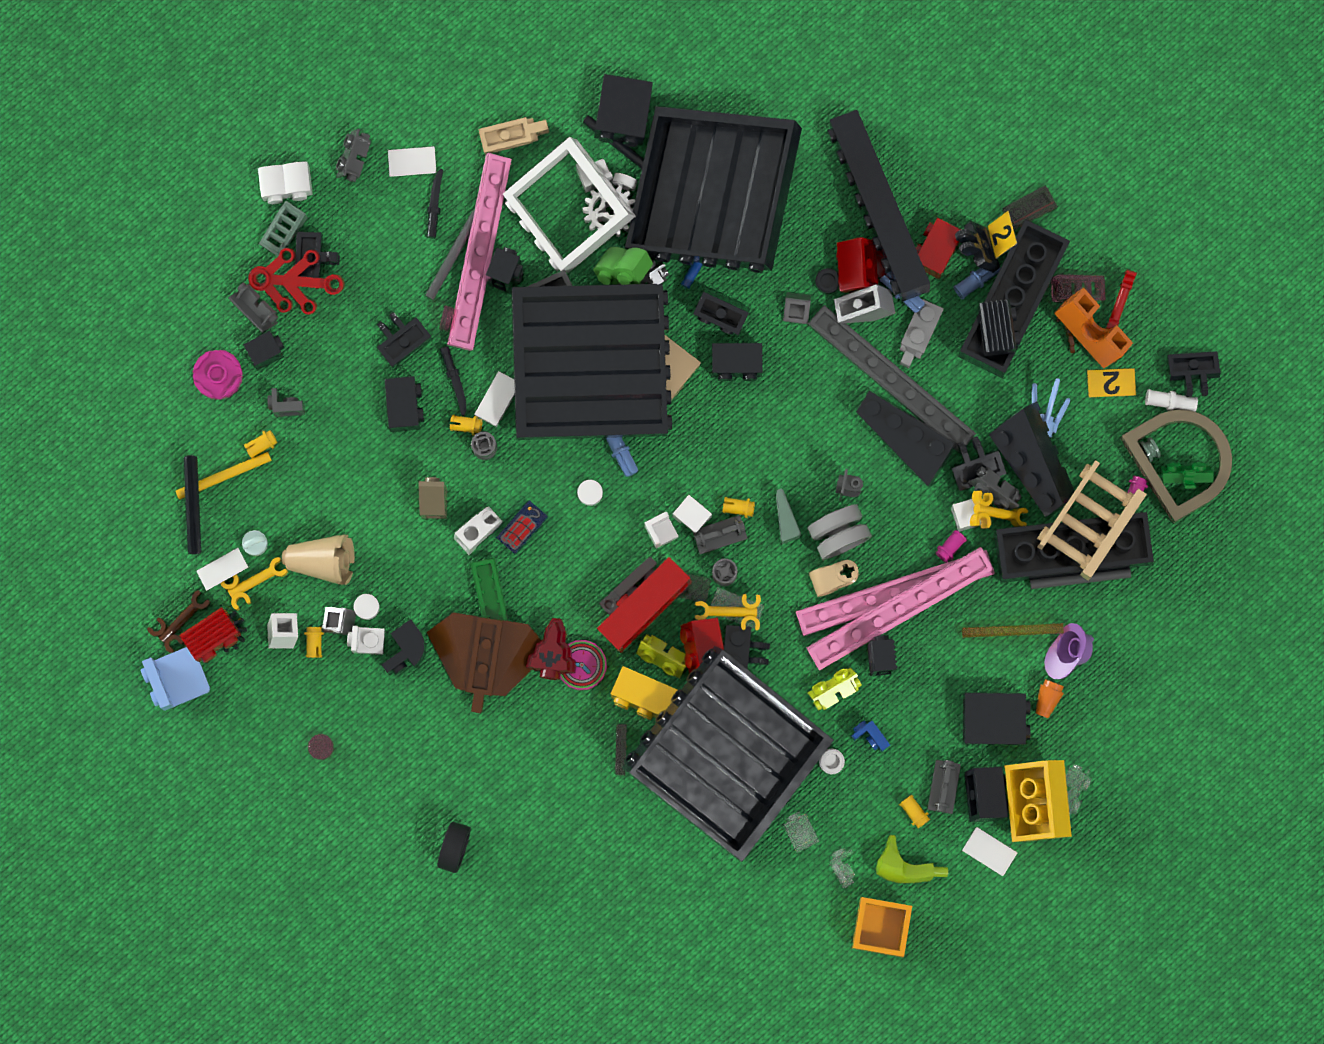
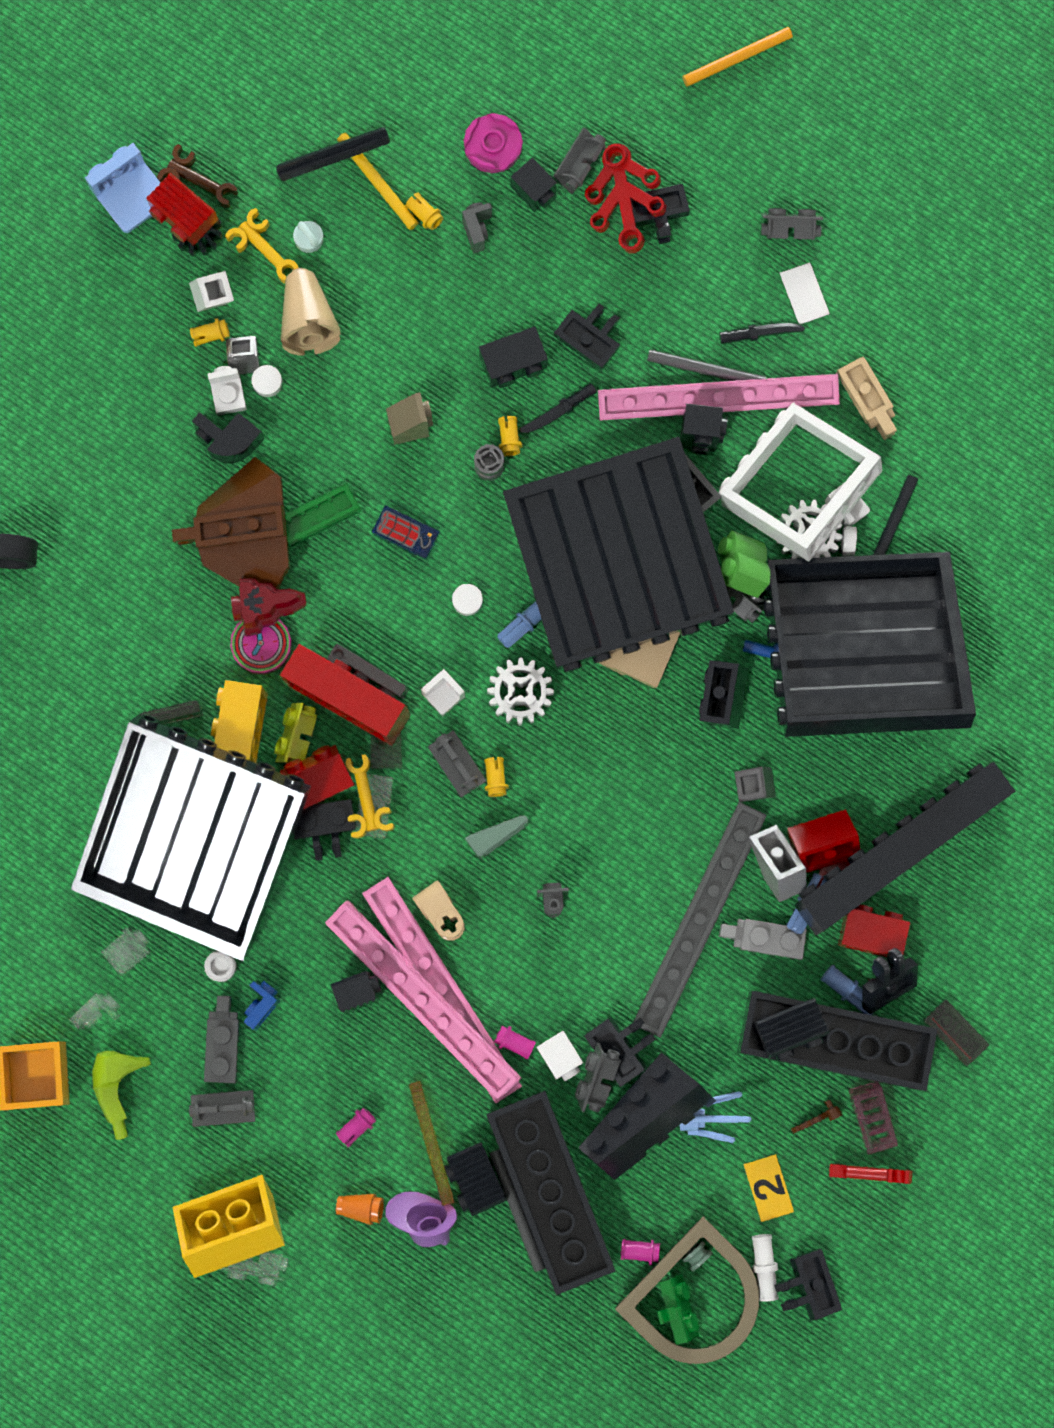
camera: 70 degrees right, 0 degrees up
(200, 160) = (737, 56): none -> light orange bar
(222, 569) = (268, 208): white sticker -> none
(285, 182) = (738, 155): white brick -> none
(290, 234) = (695, 161): sand green slope -> none
(320, 747) = (92, 373): clear pink tile -> none
(446, 318) = (628, 379): clear pink tile -> none
(477, 529) = (388, 481): white leg -> none
(496, 399) = (546, 462): white tile -> none
(623, 110) = (934, 516): black brick -> none
(666, 475) = (530, 701): none -> white gear
(692, 514) = (470, 723): white panel -> none
(722, 569) = (410, 776): flat silver wheel -> none
(737, 361) = (669, 728): black brick -> none
(827, 281) = (797, 811): black tile -> none
(839, 530) = (496, 900): light grey wheel -> none
(843, 682) = (318, 955): neon yellow hinge -> none
(893, 775) = (222, 1043): none -> dark grey hinge
(910, 438) = (632, 956): black wedge -> none
(914, 811) = (183, 1080): yellow pin -> none
(983, 682) = (356, 1126): none -> dark pink pin
(984, 511) = (564, 1068): yellow bar -> none
(986, 794) = (223, 1161): black brick -> none
(989, 851) = (160, 1183): white sticker -> none
(995, 718) = (317, 1150): black panel -> none
(1002, 234) = (911, 1006): yellow sticker -> none
(1049, 603) = (475, 1179): none -> black brick
(1103, 344) = (811, 1164): orange arch -> none
(1115, 521) = (561, 1225): tan fence -> none

